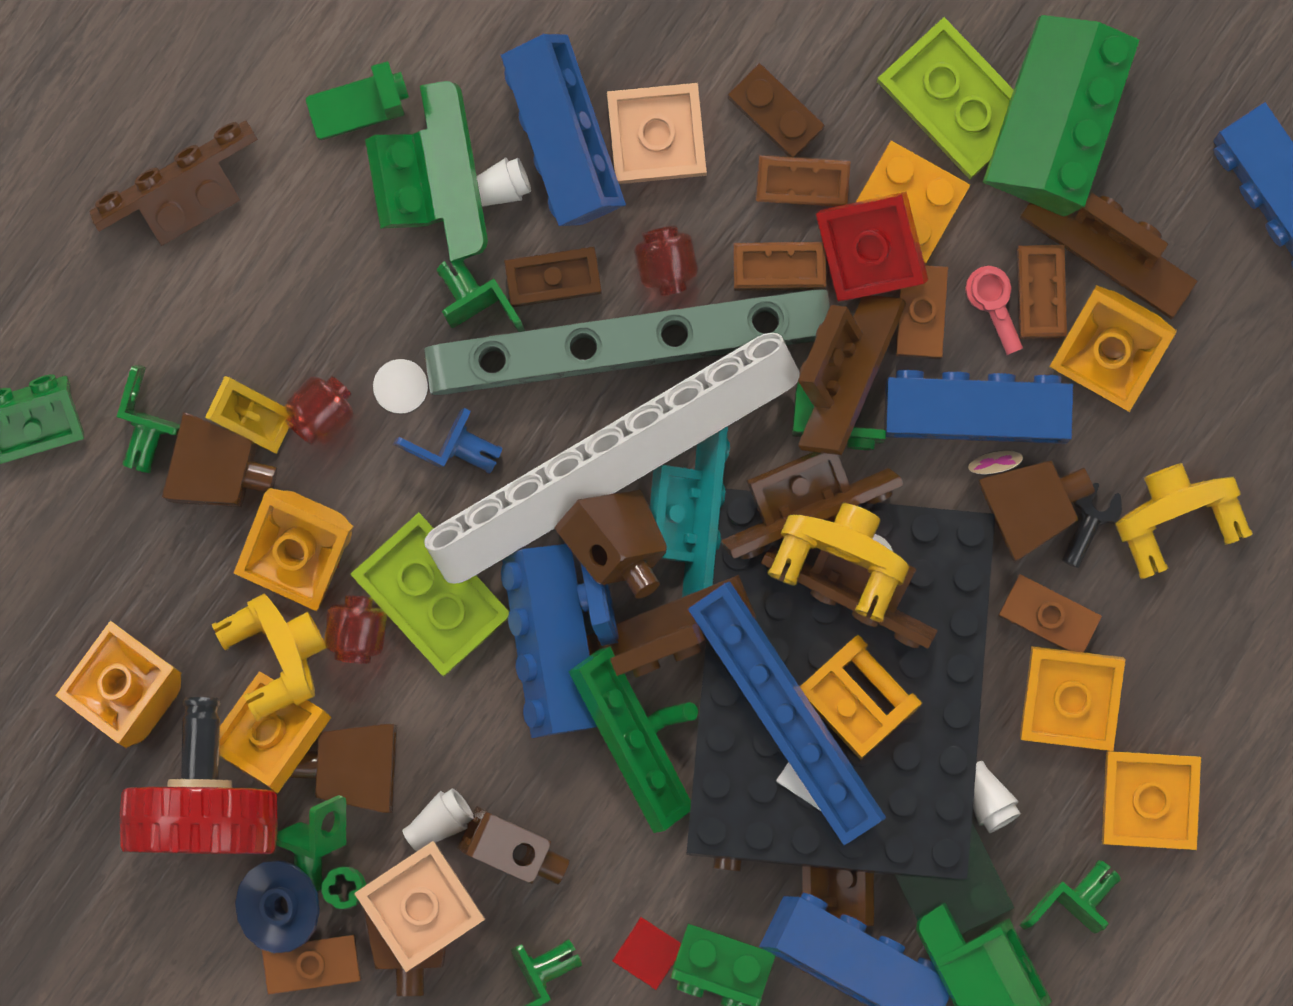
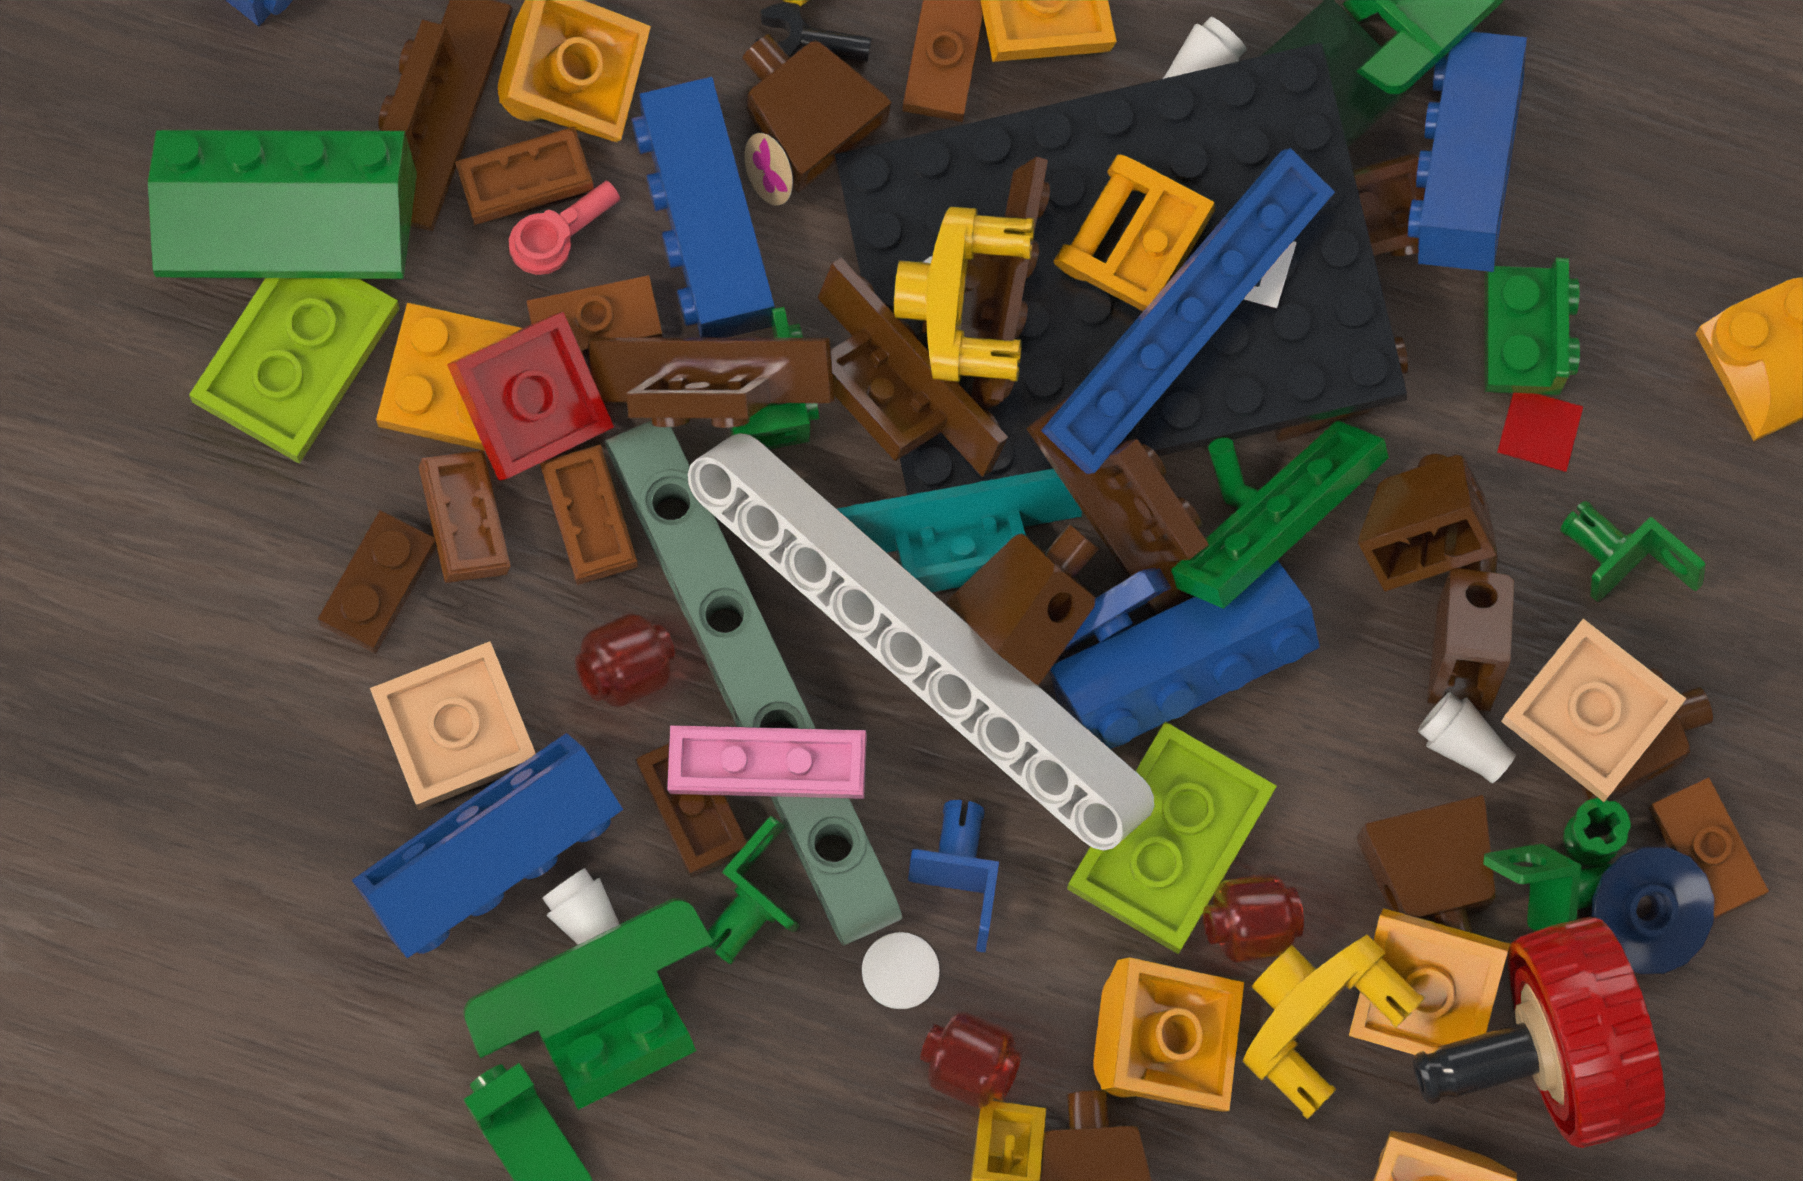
camera: 115 degrees left, 10 degrees down
(558, 329) = (767, 762): none -> bright pink tile
(593, 840) = (1426, 522): none -> reddish brown torso

